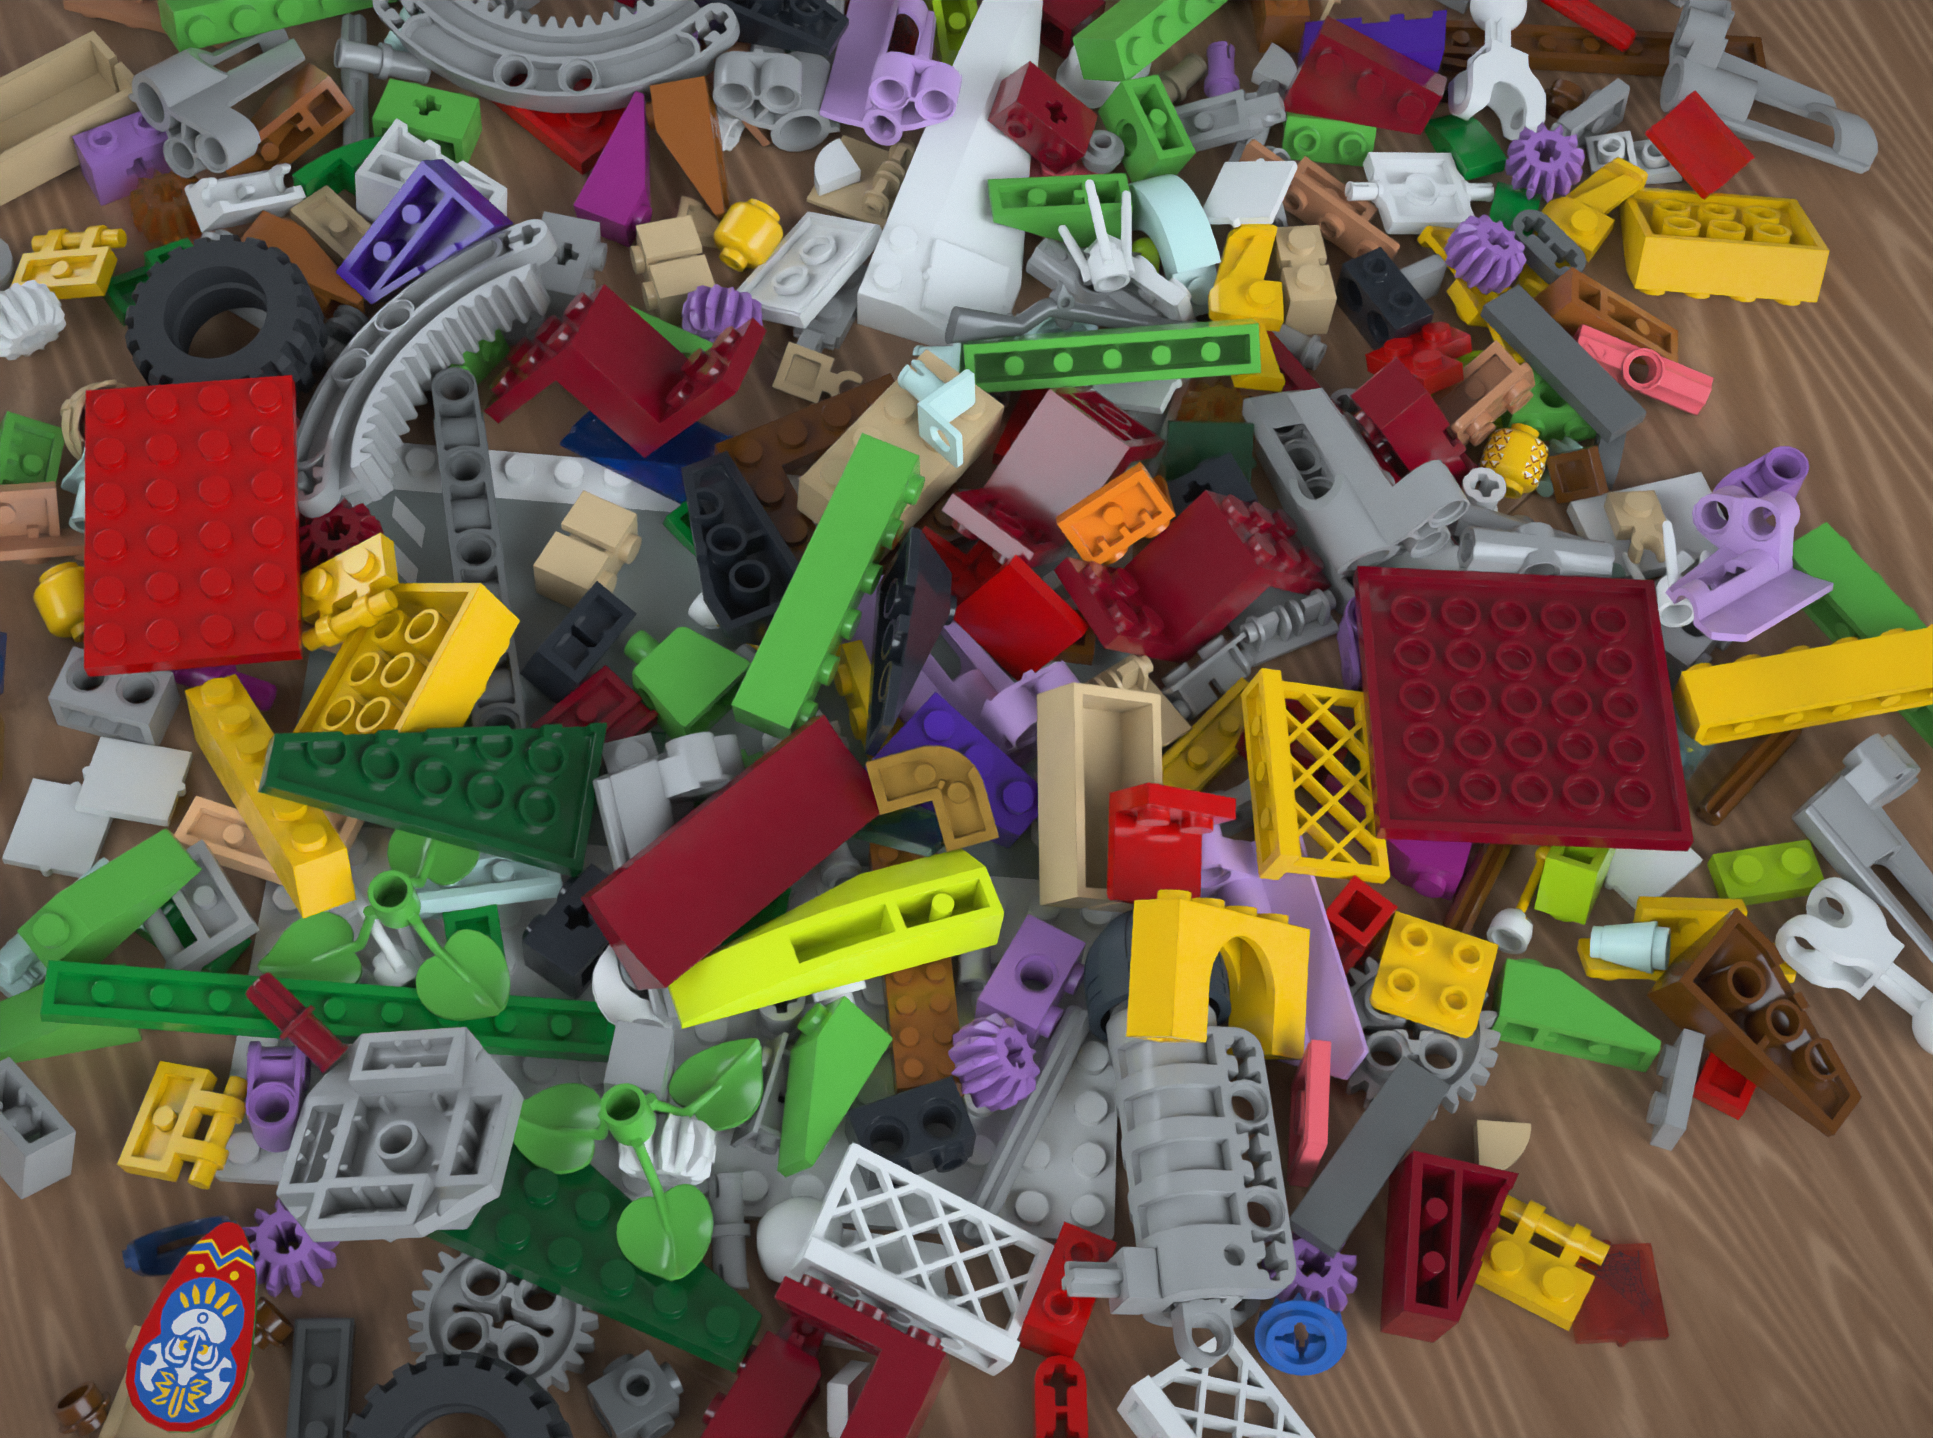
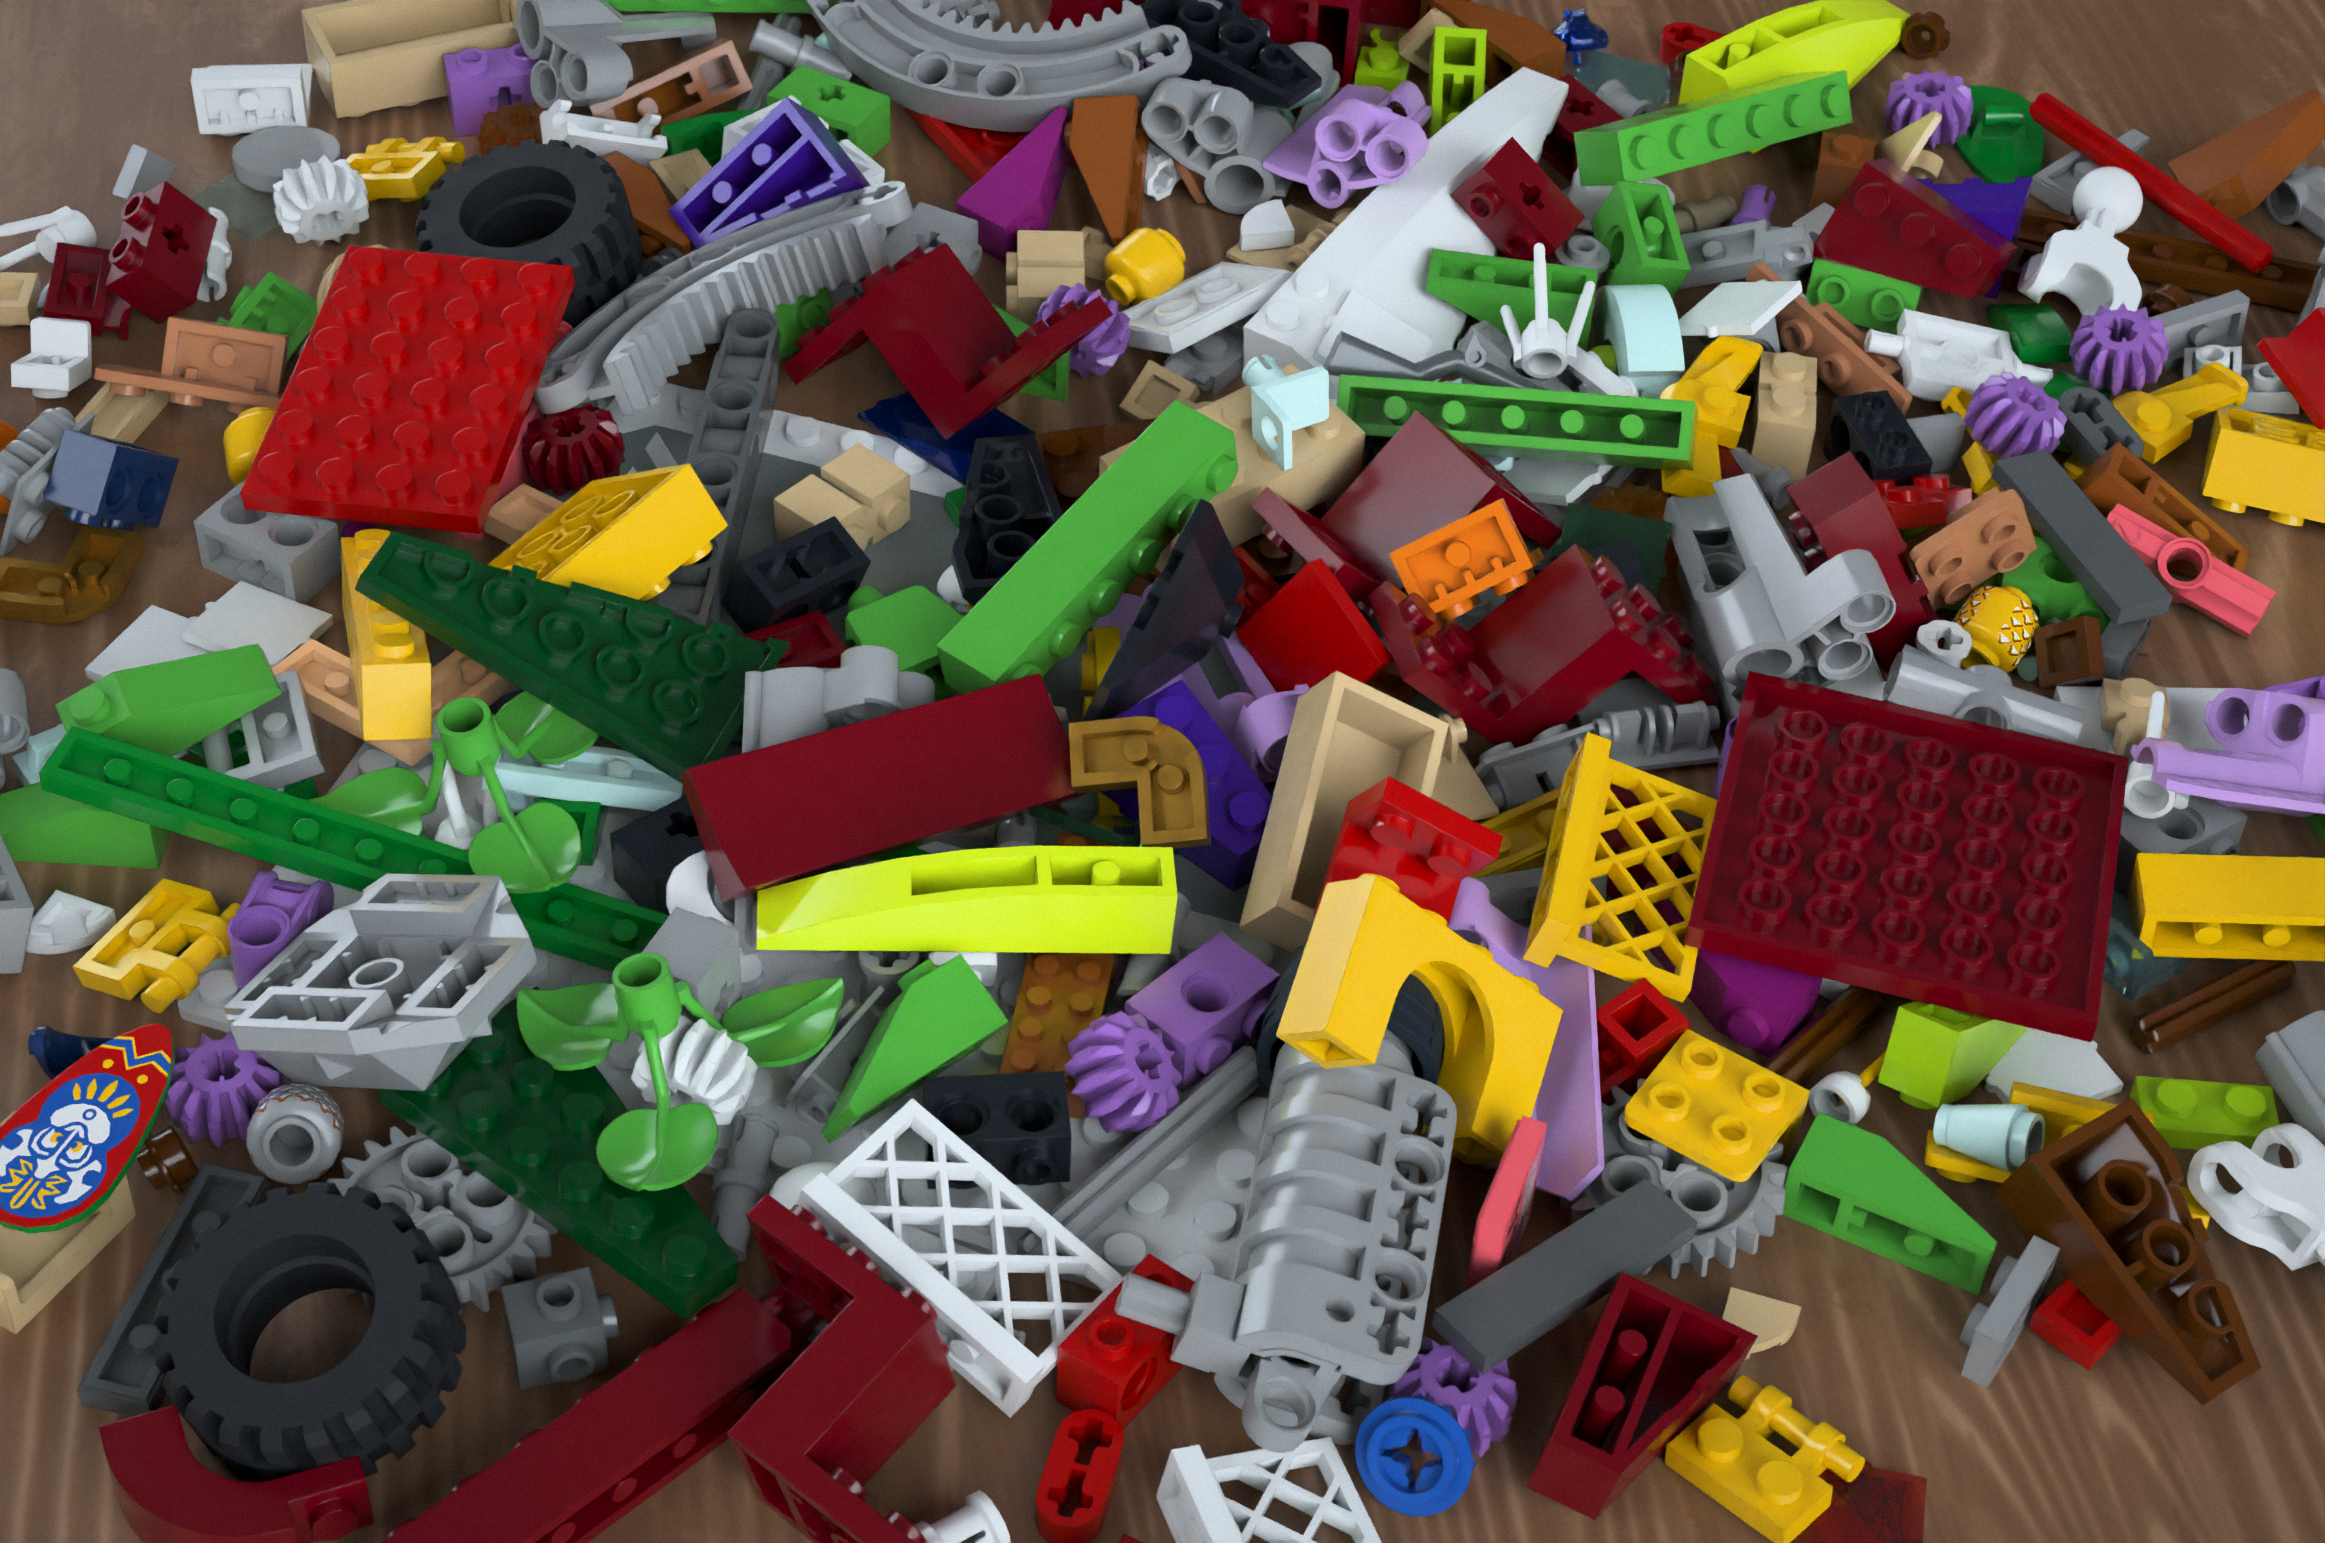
camera: 20 degrees right, 15 degrees down
(94, 1115) = (68, 924): none -> white tile
(295, 1021) = (317, 844): dark red axle -> none
(349, 592) = (554, 476): yellow plate -> none
(364, 1279) = (295, 1133): none -> light grey head

